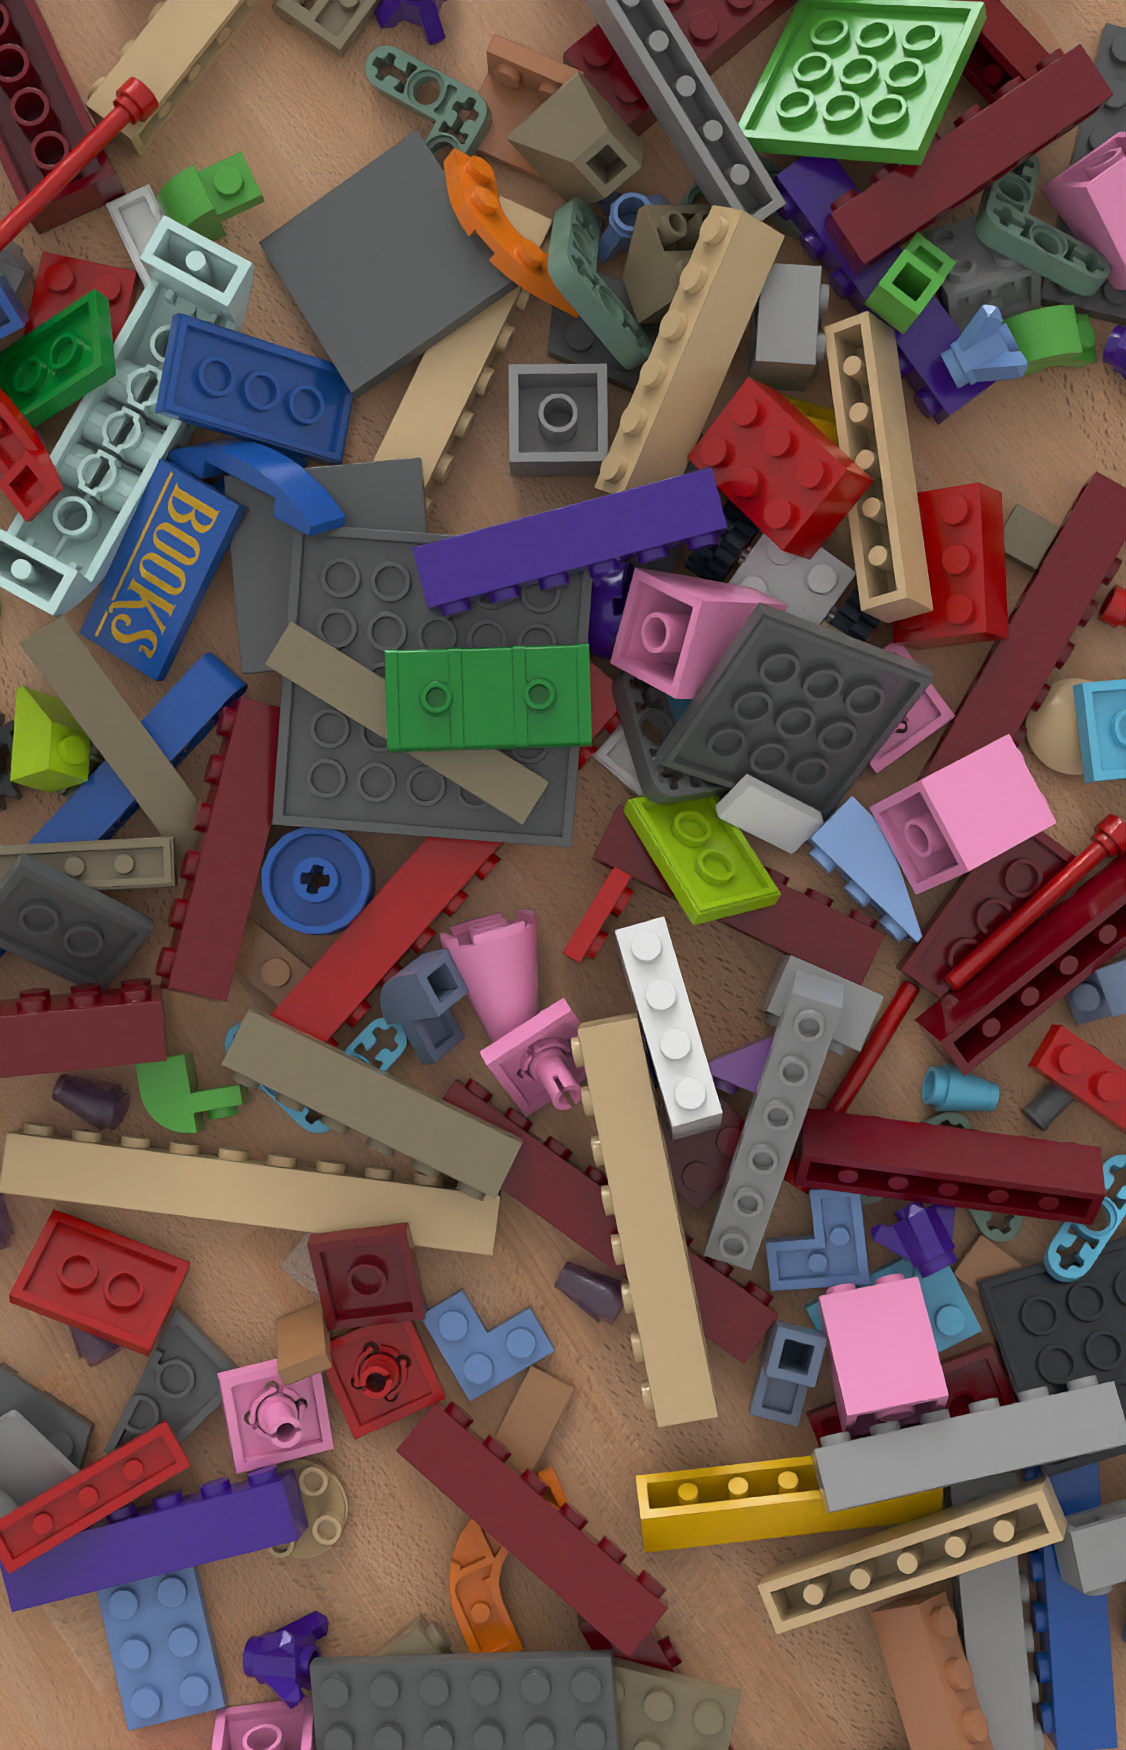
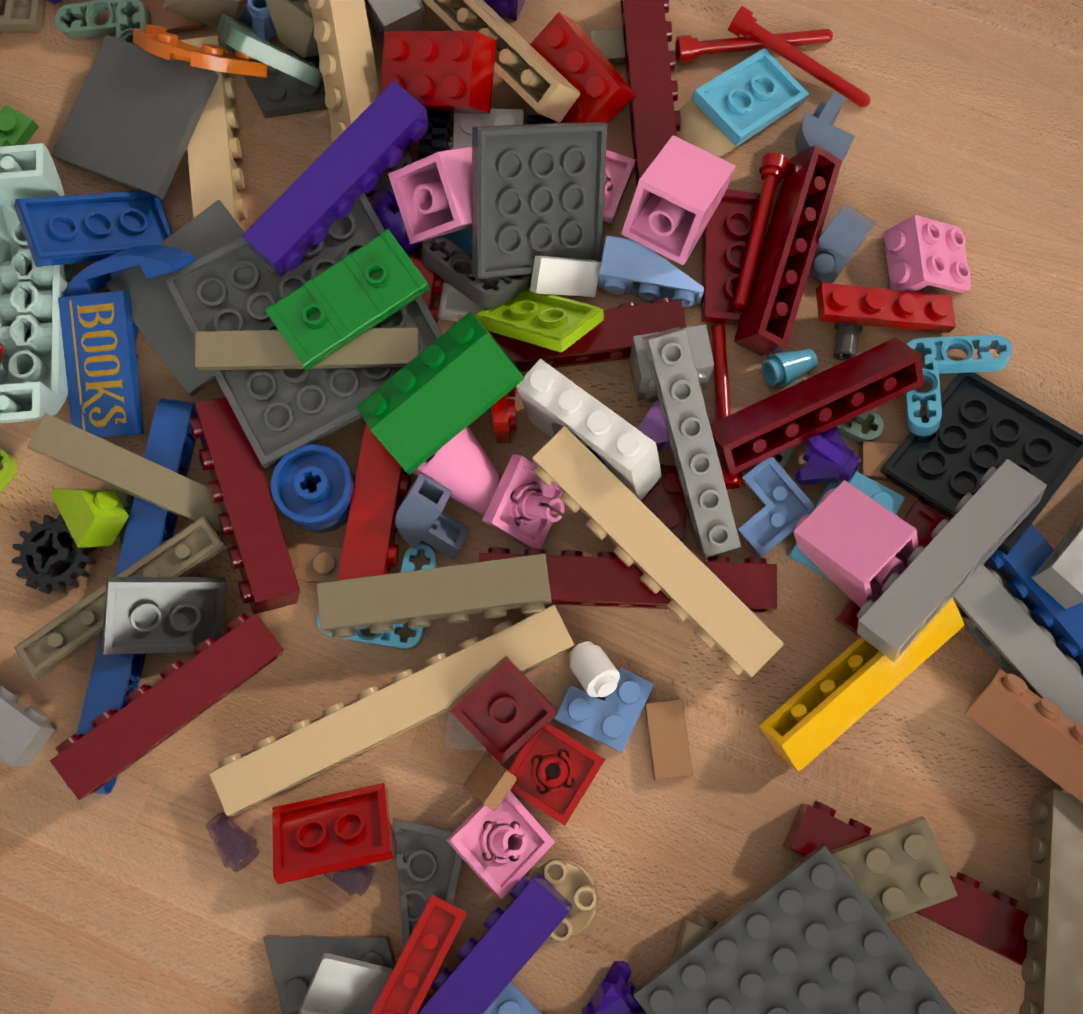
camera: 30 degrees left, 10 degrees down
(92, 1100) = (255, 720): cone -> none
(173, 1095) = (312, 684): bright green brick -> none
(477, 1588) = (695, 843): orange plate -> none
(497, 1293) = (593, 669): none -> white brick
(524, 881) = (439, 393): none -> green slope
(534, 1527) = (718, 799): dark red brick -> none
(557, 419) = (288, 136): light grey brick -> none
(592, 1292) = (654, 631): cone -> none
(786, 1370) = (802, 591): sand blue brick -> none
(913, 1554) = (965, 652): tan brick -> none

